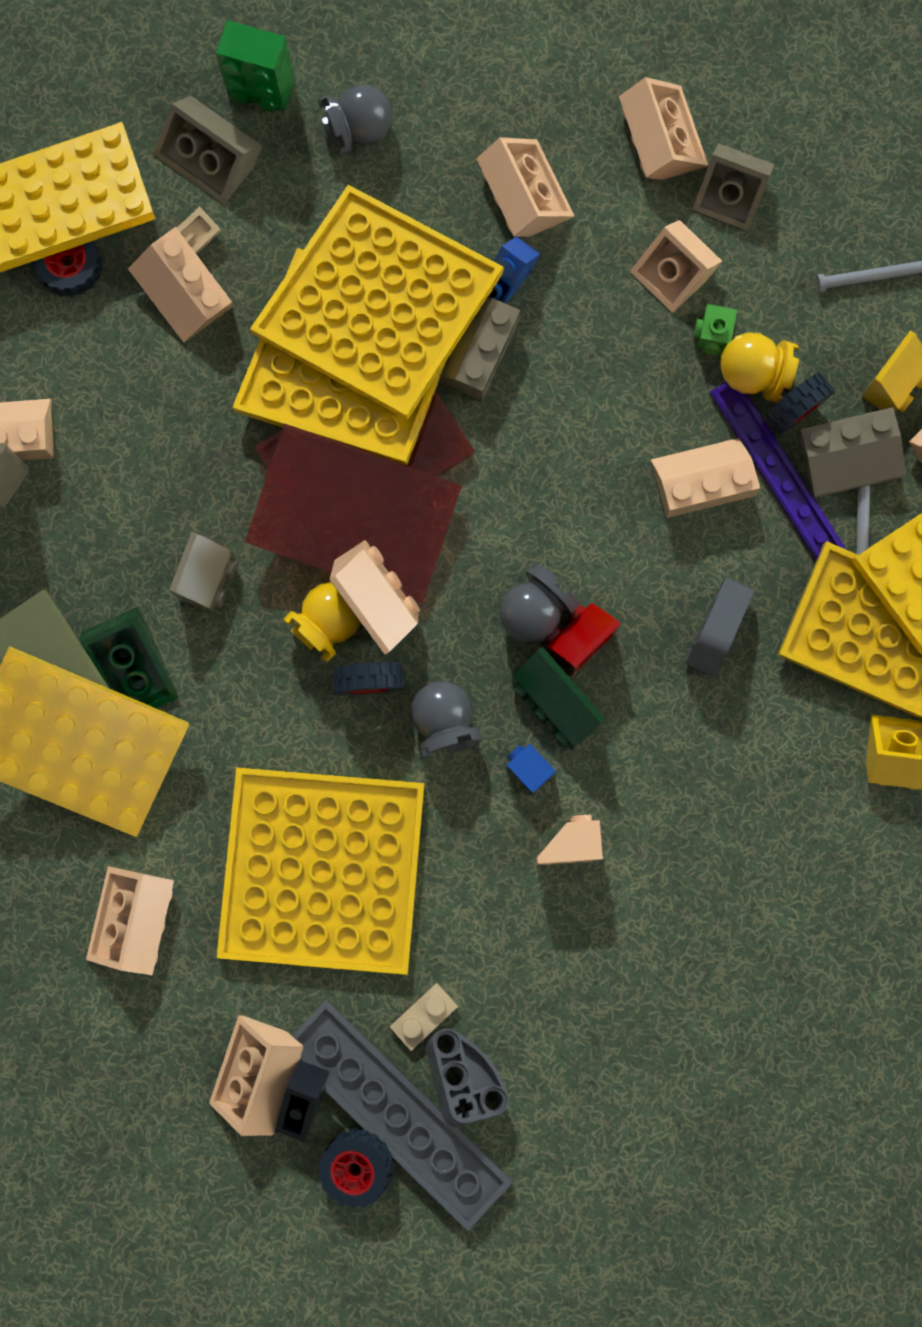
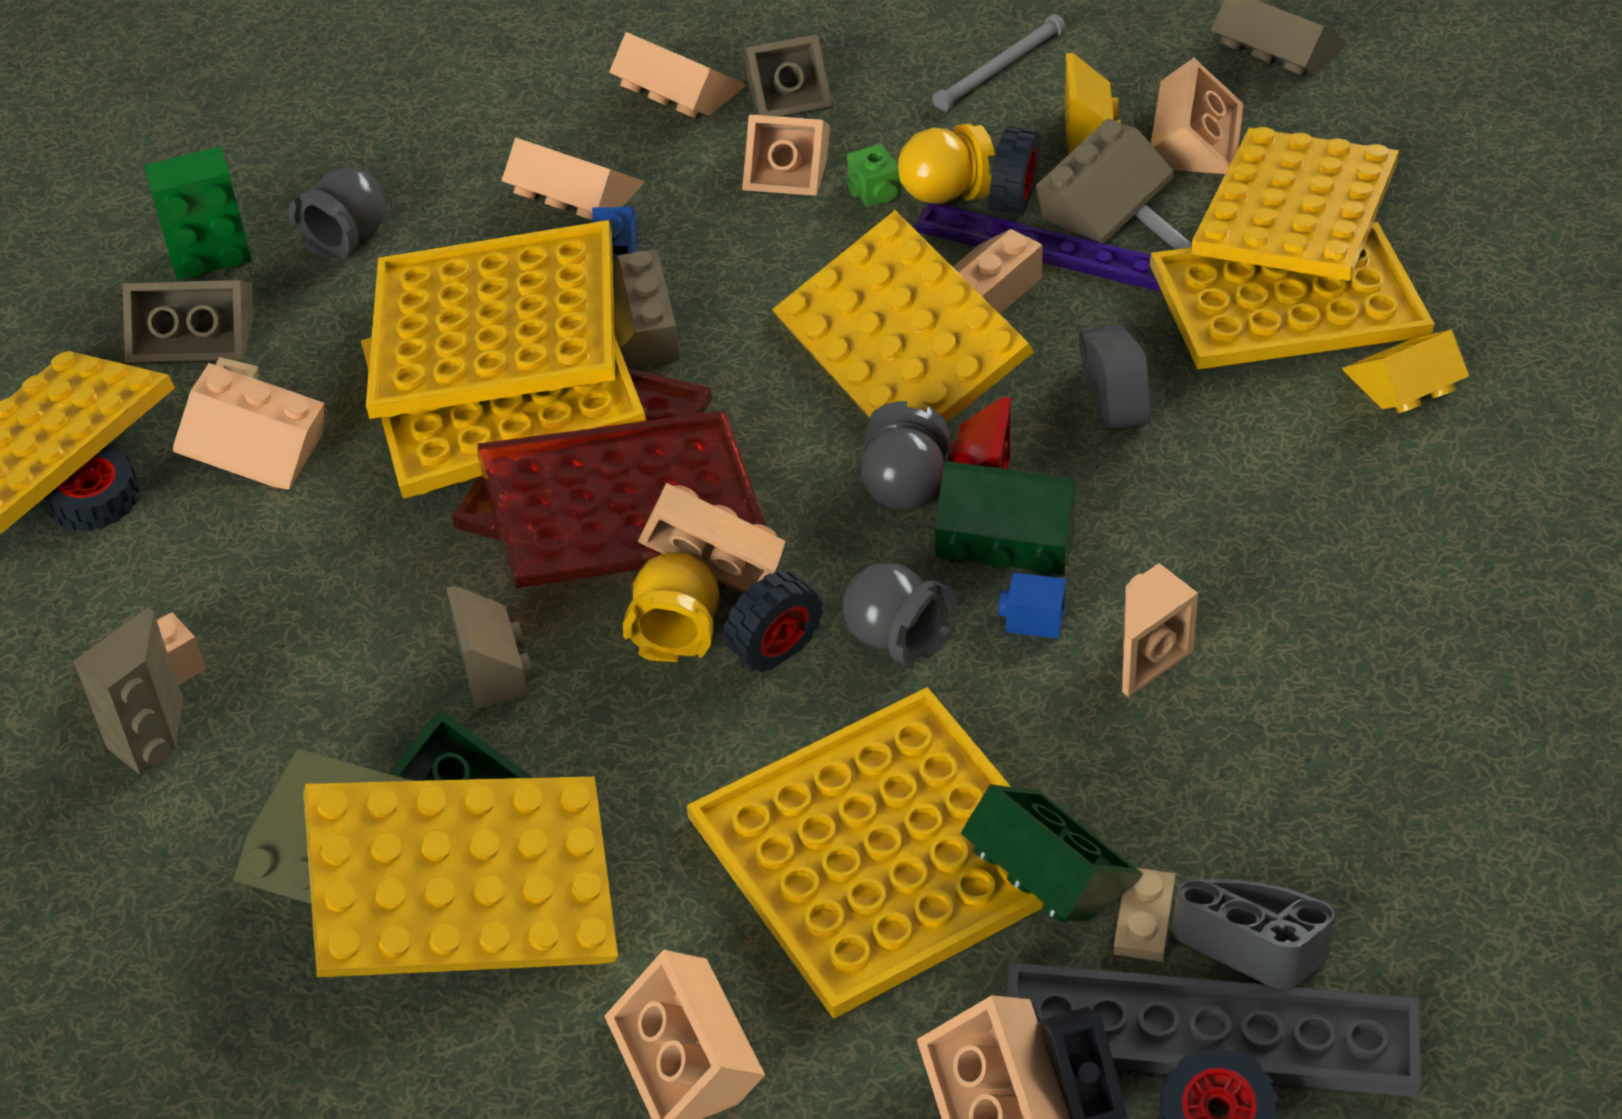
camera: 35 degrees left, 35 degrees down
(393, 956) = (1048, 853): none -> dark green slope
(619, 493) = (901, 325): none -> yellow plate

